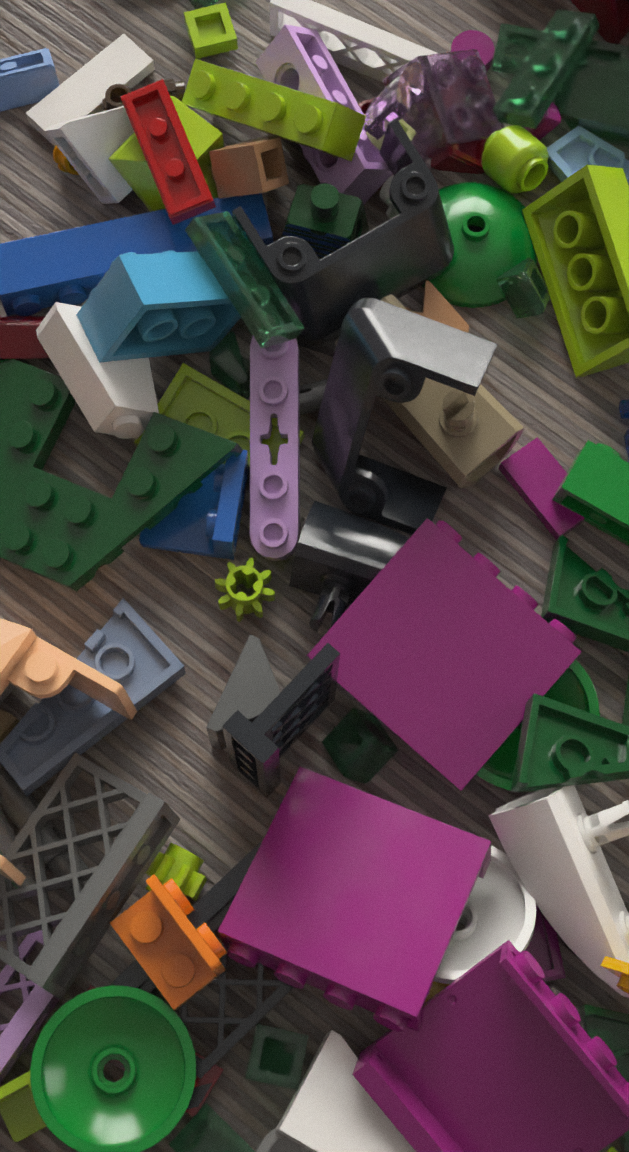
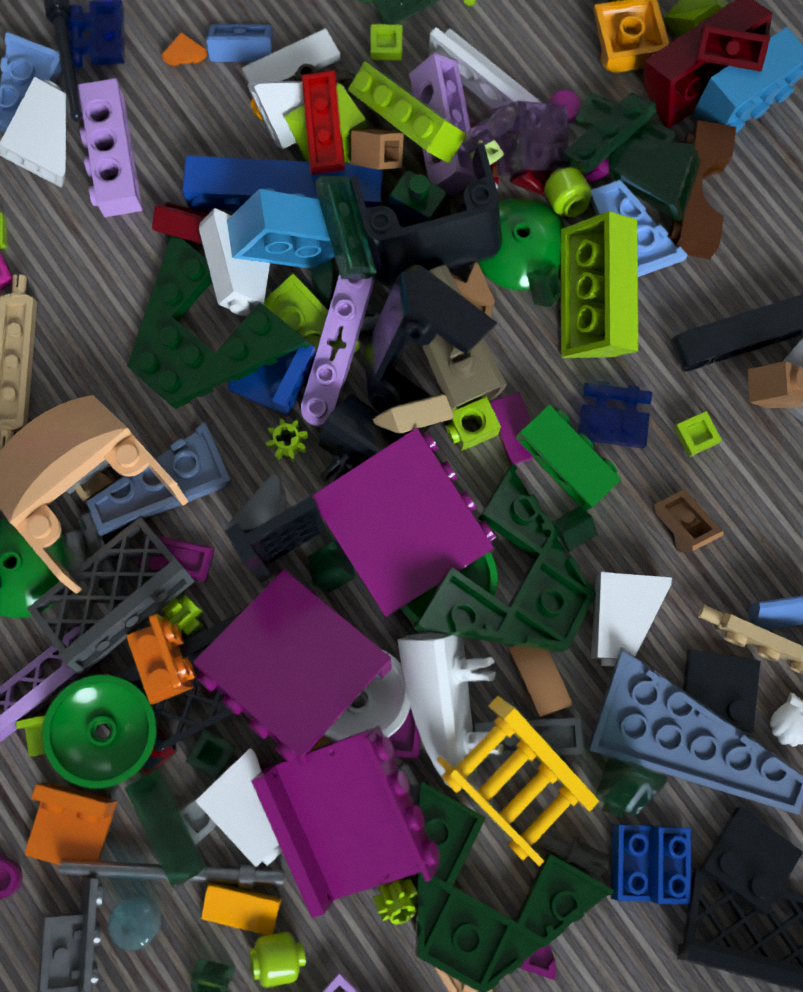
camera: 15 degrees right, 5 degrees up
(167, 784) = (193, 557): none -> magenta tile
(415, 503) = (415, 414): none -> tan slope
(495, 478) = (483, 414): none -> lime brick

